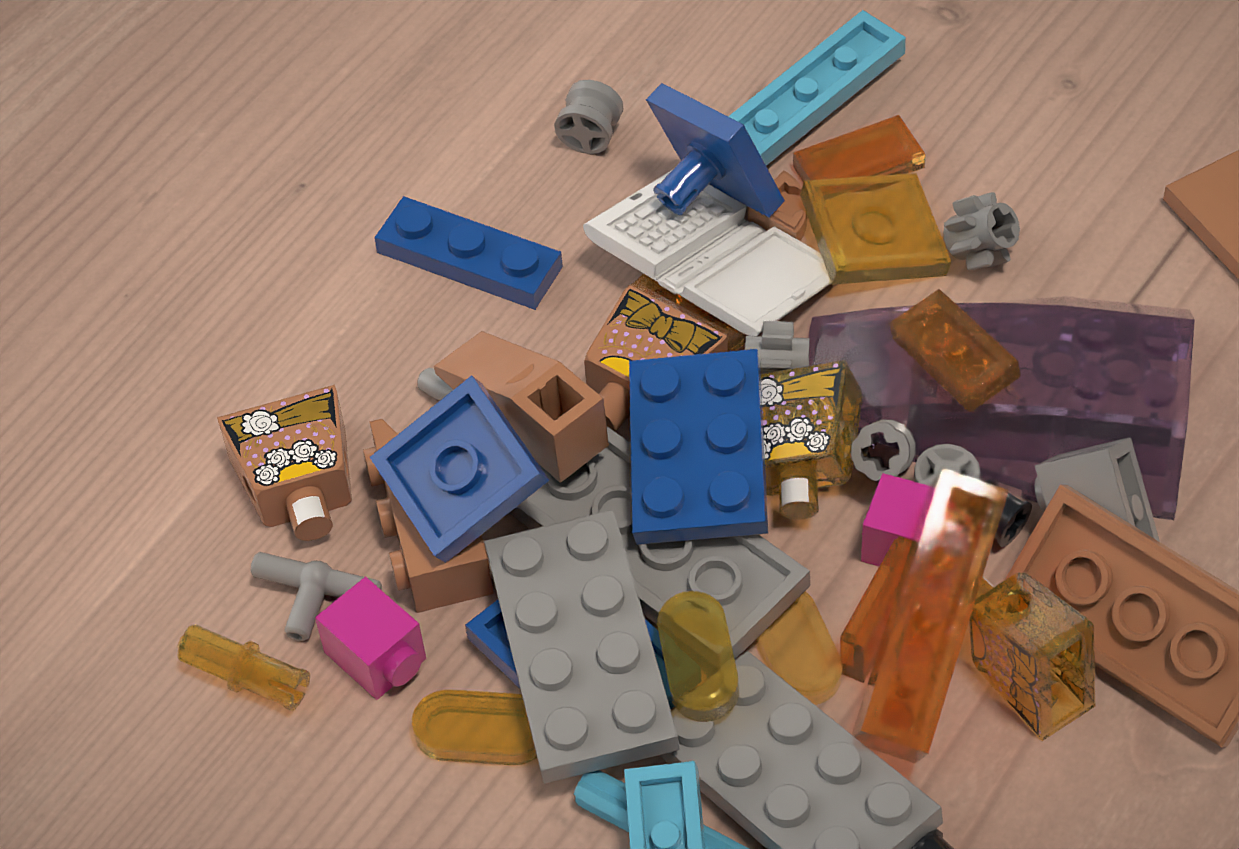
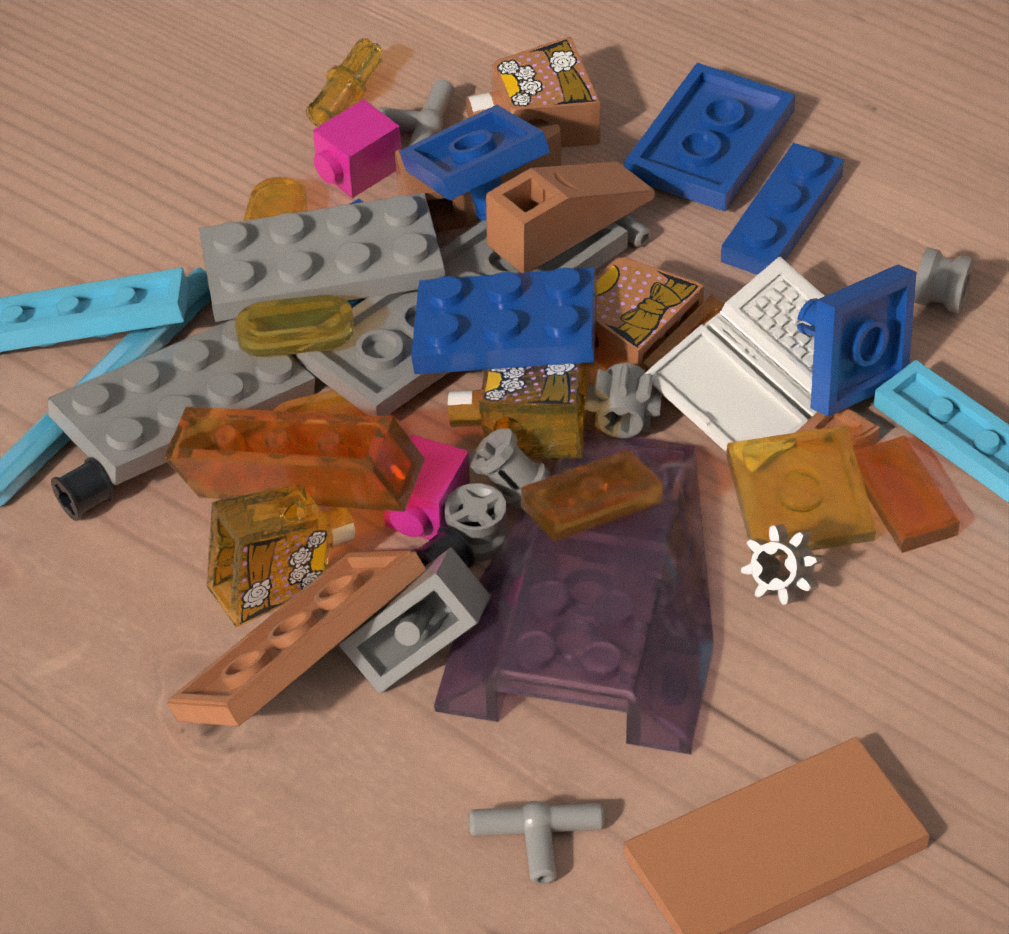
camera: 90 degrees right, 5 degrees down
(359, 308) = (710, 136): none -> blue plate

